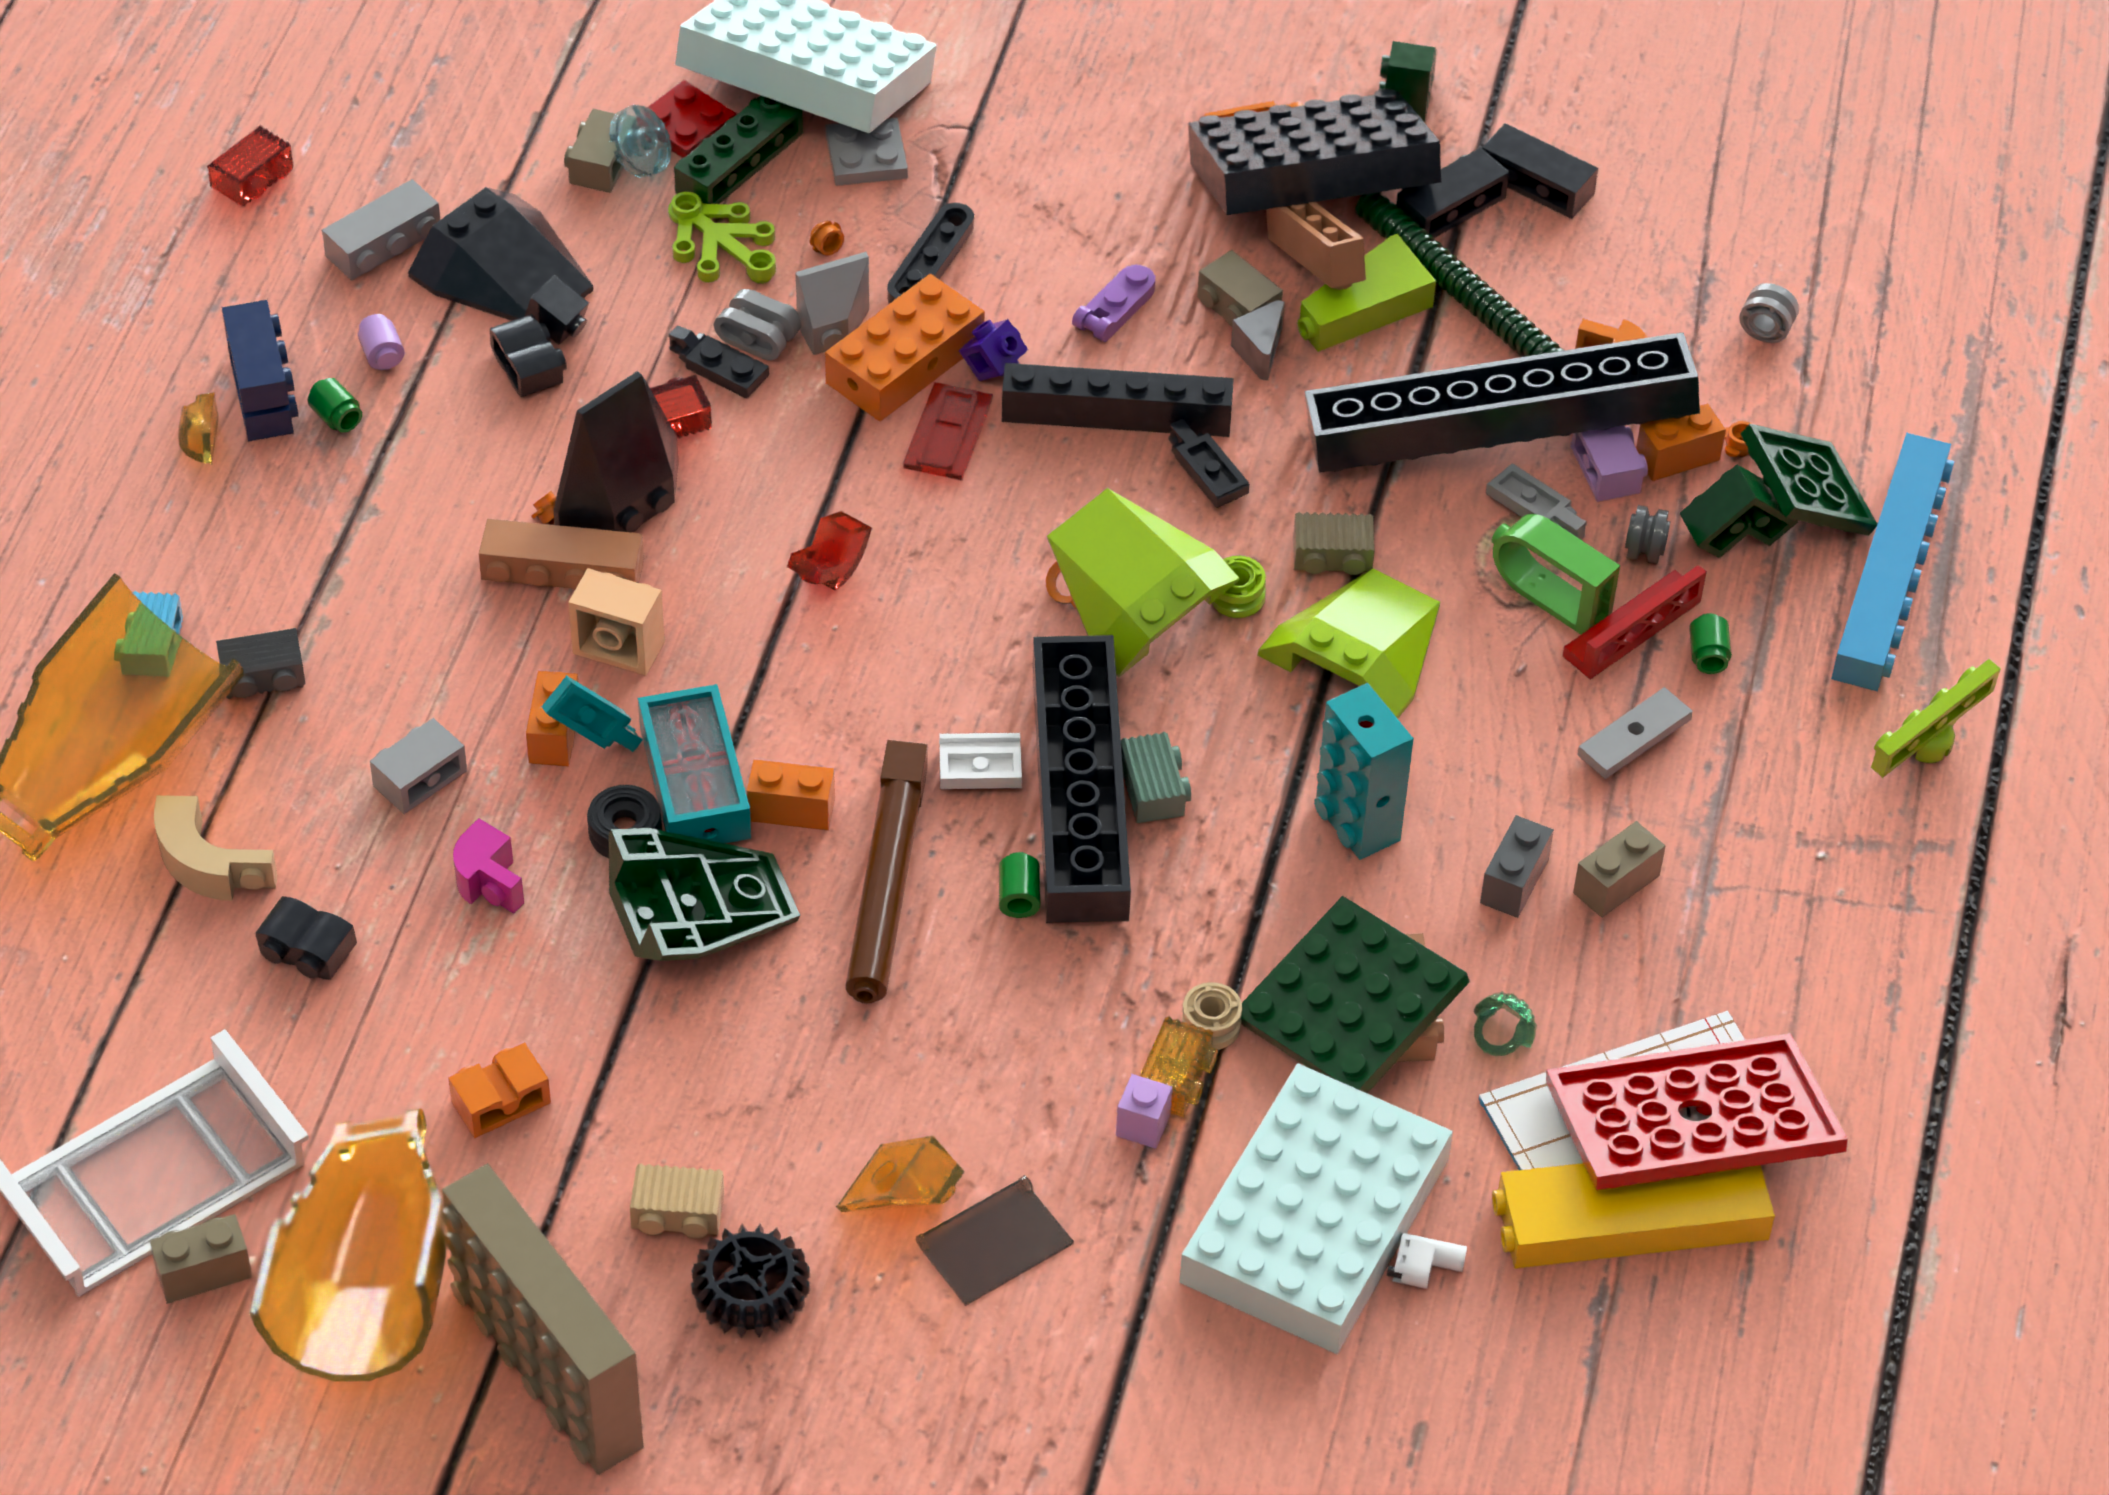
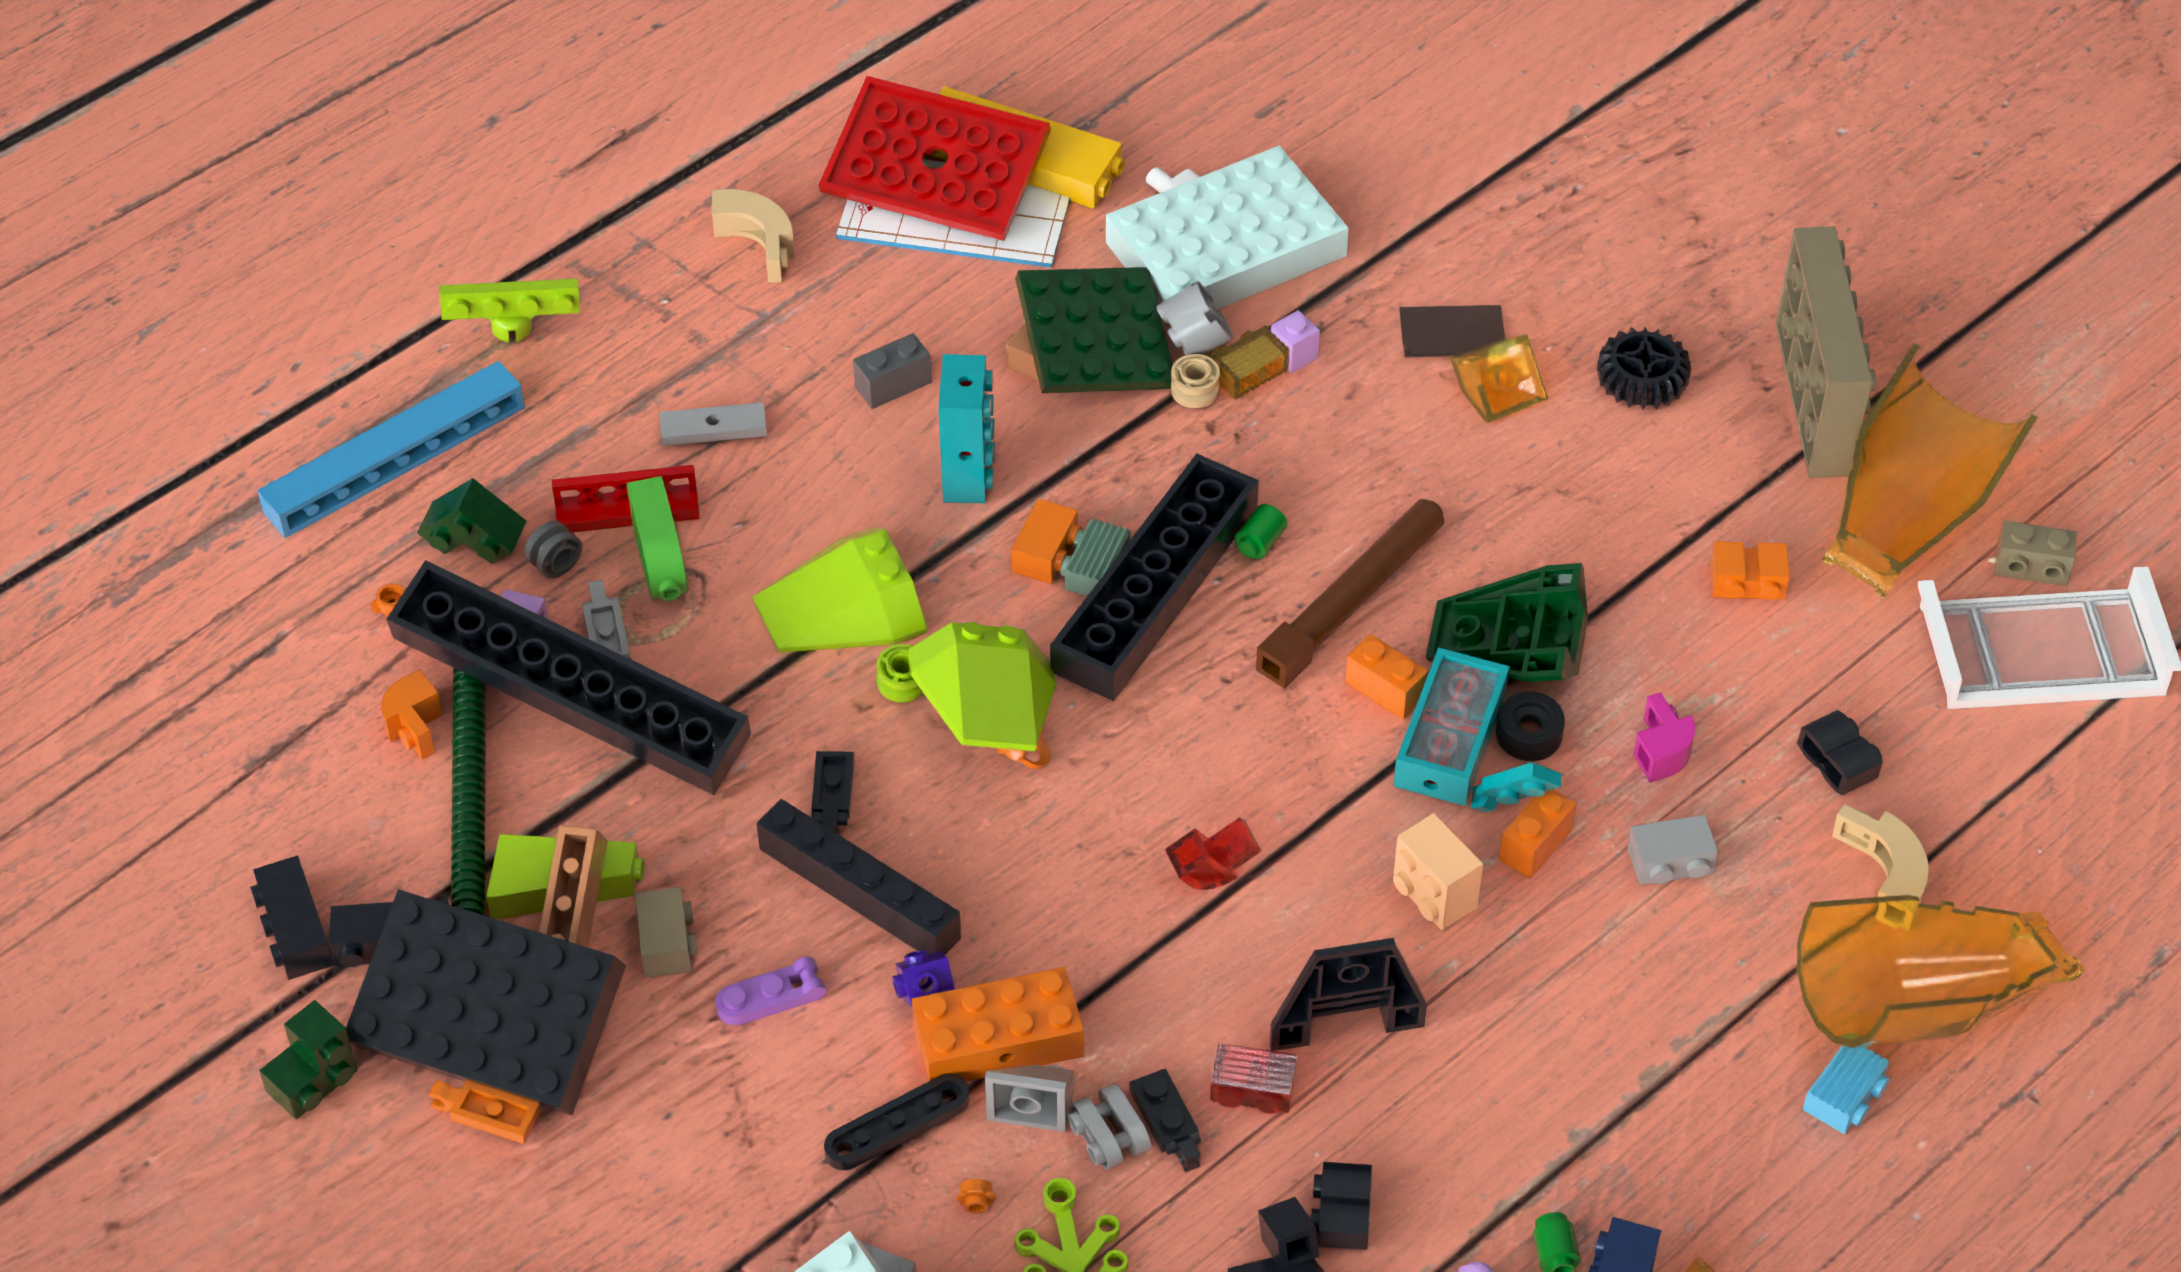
camera: 145 degrees left, 0 degrees up
(268, 661) = (1759, 1009): dark grey brick -> none
(545, 508) = (1413, 1027): orange plate -> none
(556, 553) = (1450, 984): nougat brick -> none
(677, 1200) = (1663, 439): tan brick -> none
(948, 431) = (1017, 944): clear red piece -> none
(980, 761) = (1216, 640): white plate -> none
(1216, 772) = (1044, 541): none -> orange brick
(1254, 1056) = (1195, 320): none -> light grey brick
(1257, 337) = (687, 871): flat silver slope -> none
(1333, 542) = (795, 670): dark tan brick -> none
(1524, 1031) = (986, 289): clear green piece -> none
(1619, 869) = (823, 335): dark tan brick -> none
(1710, 643) = (592, 455): green brick -> none
(1769, 313) = (259, 677): light grey wheel -> none
(1805, 969) = (756, 218): none -> tan arch
(1808, 480) = (393, 517): dark green plate -> none

